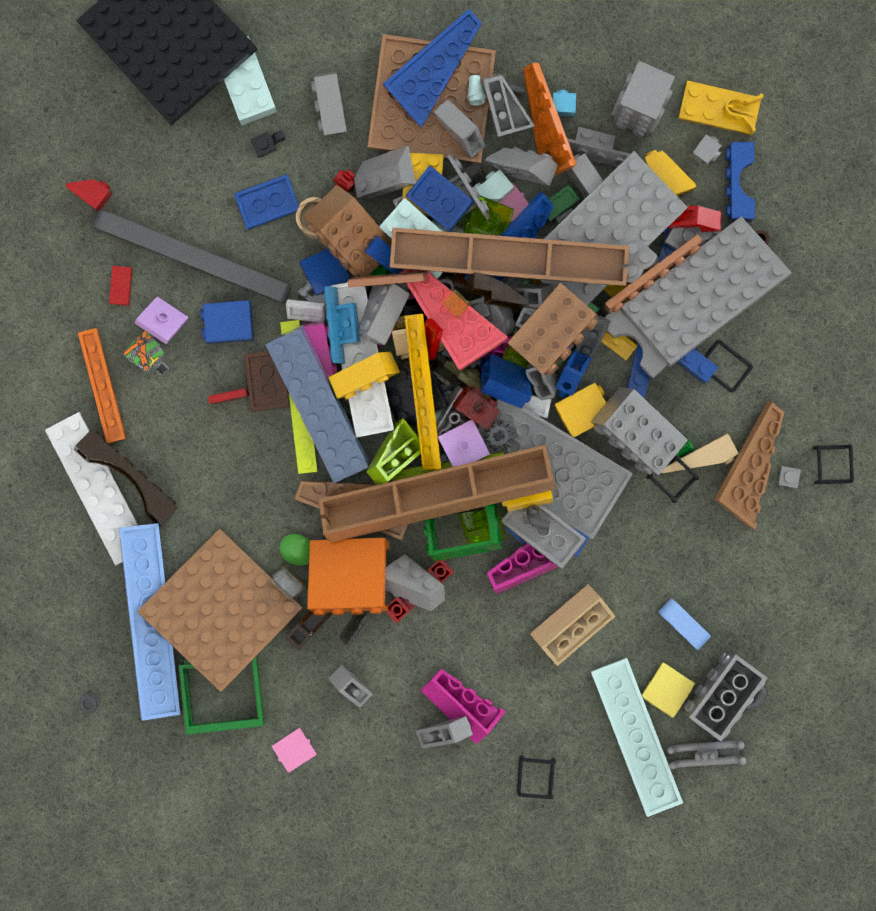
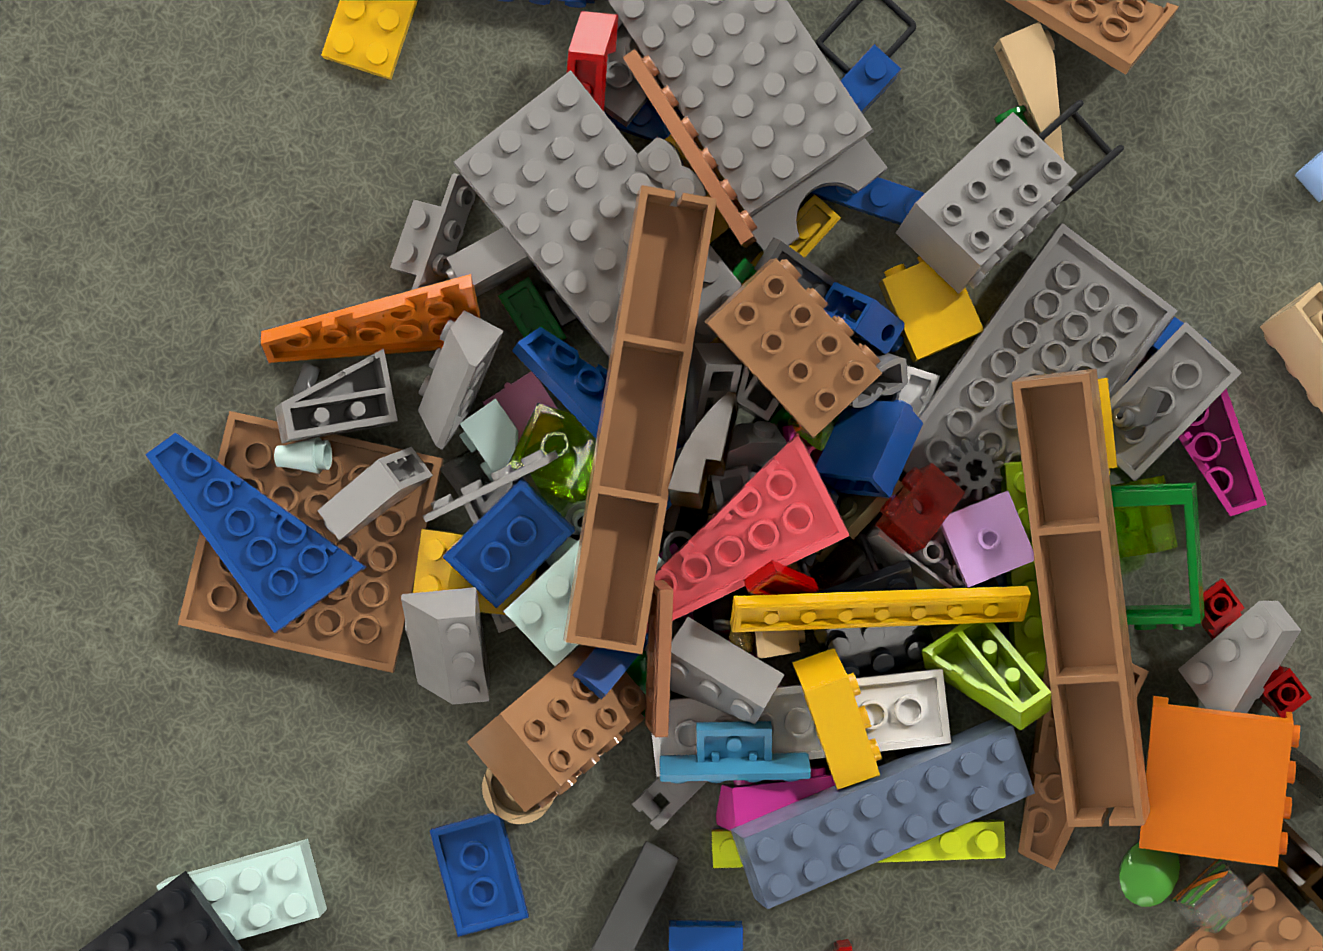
camera: 85 degrees left, 0 degrees up
(265, 143) = (366, 867): black plate -> none
(265, 383) = (834, 912): reddish brown plate -> none
(305, 311) = (696, 818): white plate -> none
(323, 271) = (626, 777): blue tile -> none
(329, 103) = (301, 739): light grey wedge -> none
(345, 180) = (454, 721): red gear -> none
(456, 303) = (720, 530): plate -> none
(564, 103) = (342, 288): medium azure brick -> none
(643, 99) = (354, 136): light grey brick -> none
(669, 172) = (493, 104): yellow slope -> none
(706, 150) = (458, 30): light grey brick -> none

